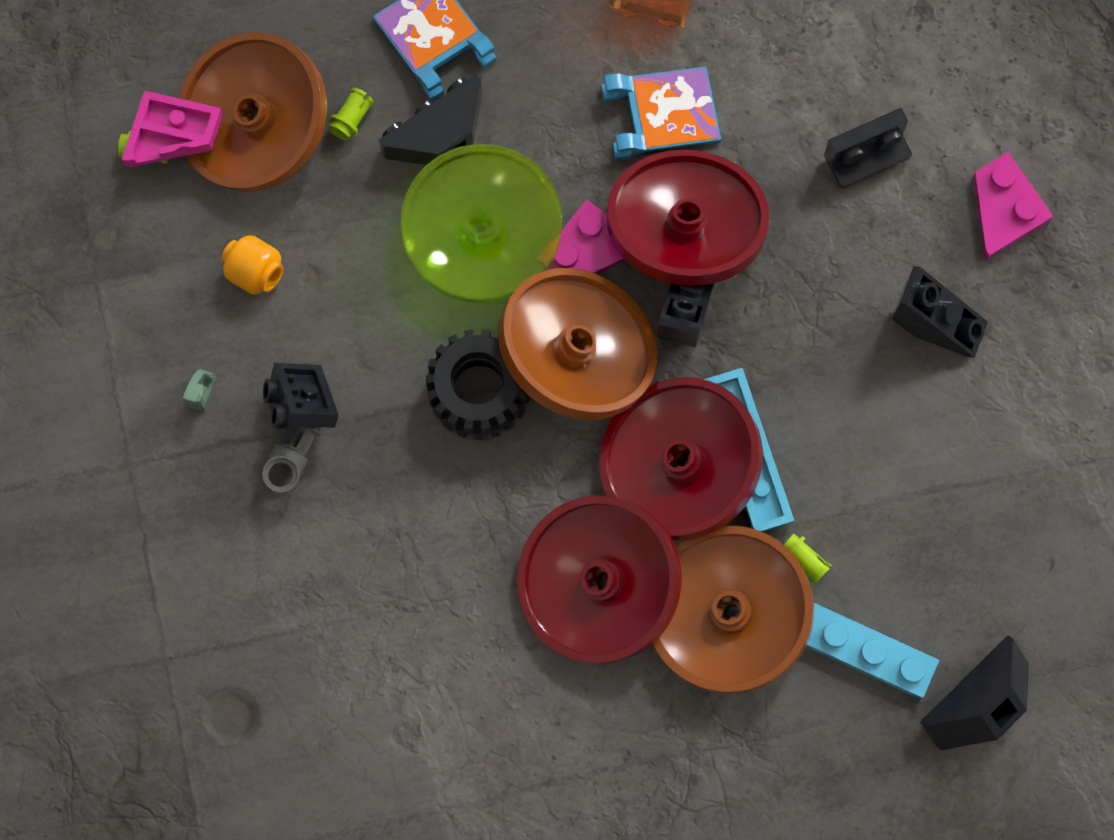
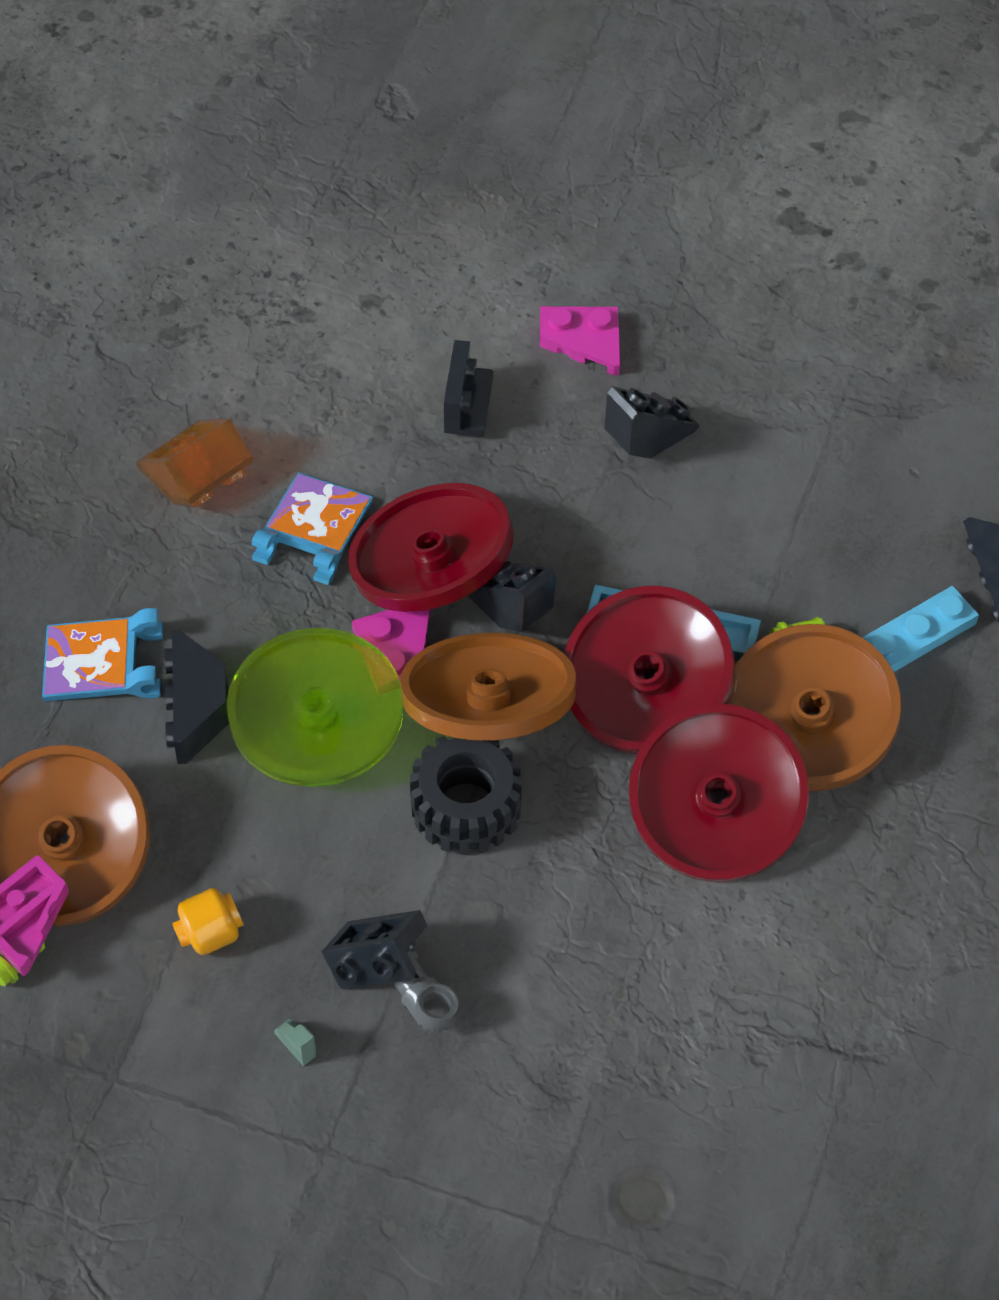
camera: 60 degrees left, 20 degrees down
(350, 114) = (124, 757): lime pin -> none

